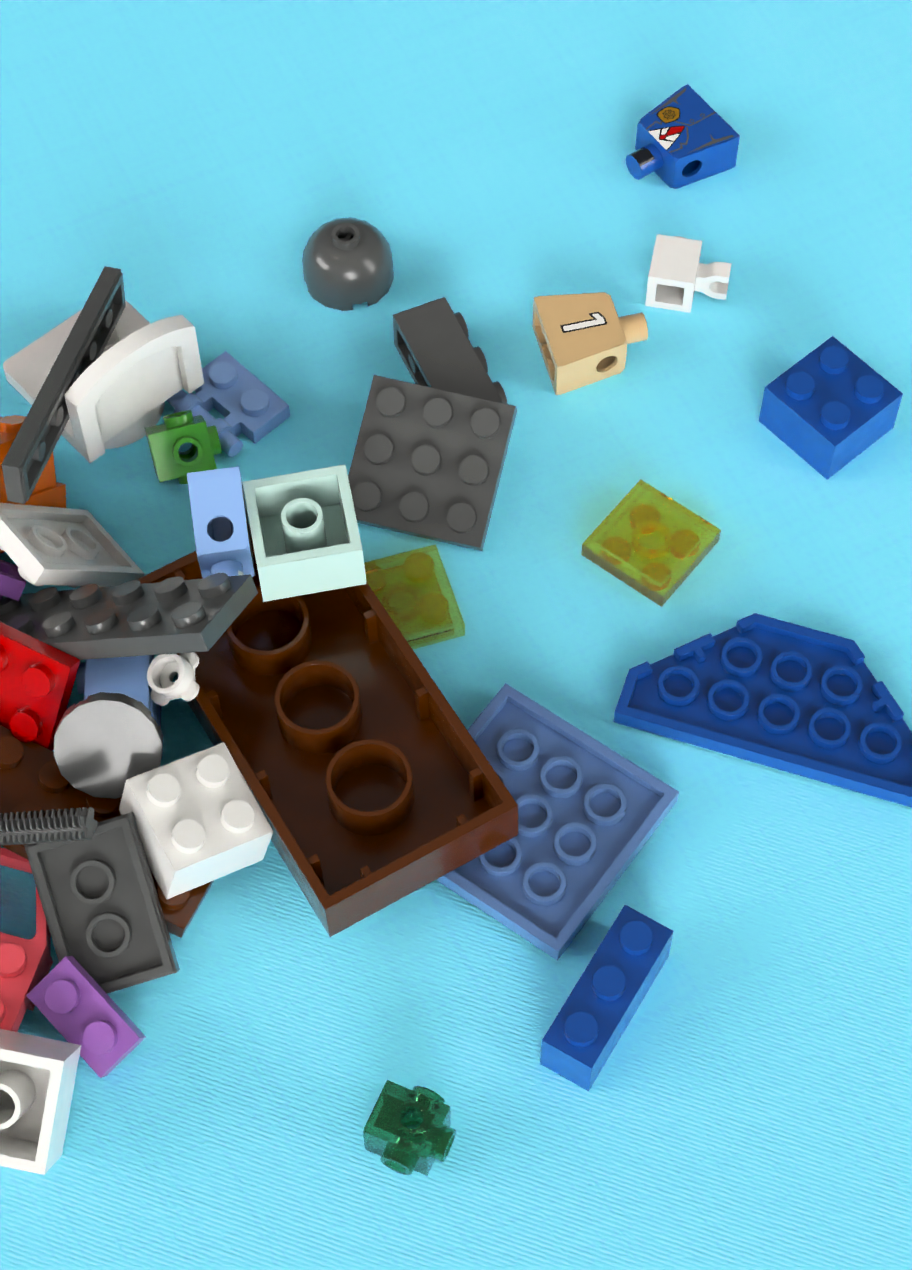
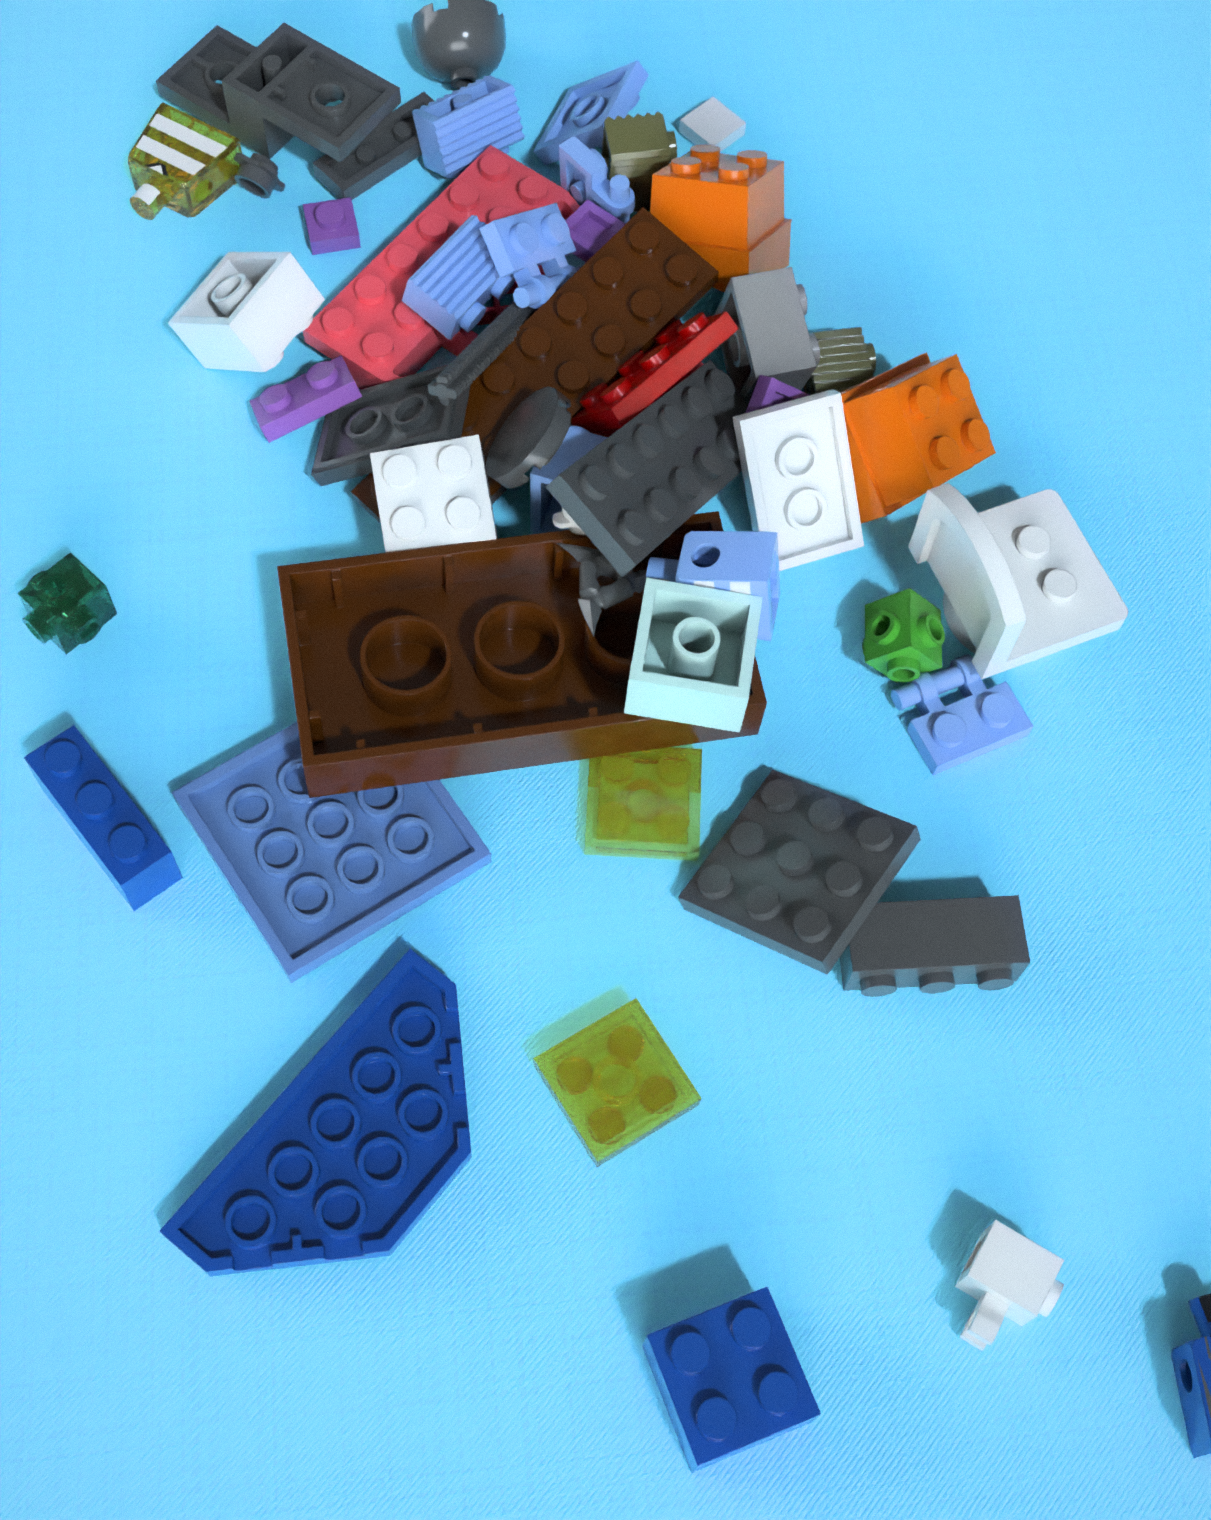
camera: 105 degrees right, 5 degrees up
(49, 411) = (1011, 522): dark grey tile -> none
(258, 641) = (596, 596): none -> dark grey piece
(347, 264) = (1129, 894): dark grey cylinder -> none
(583, 338) = (935, 1118): tan torso -> none

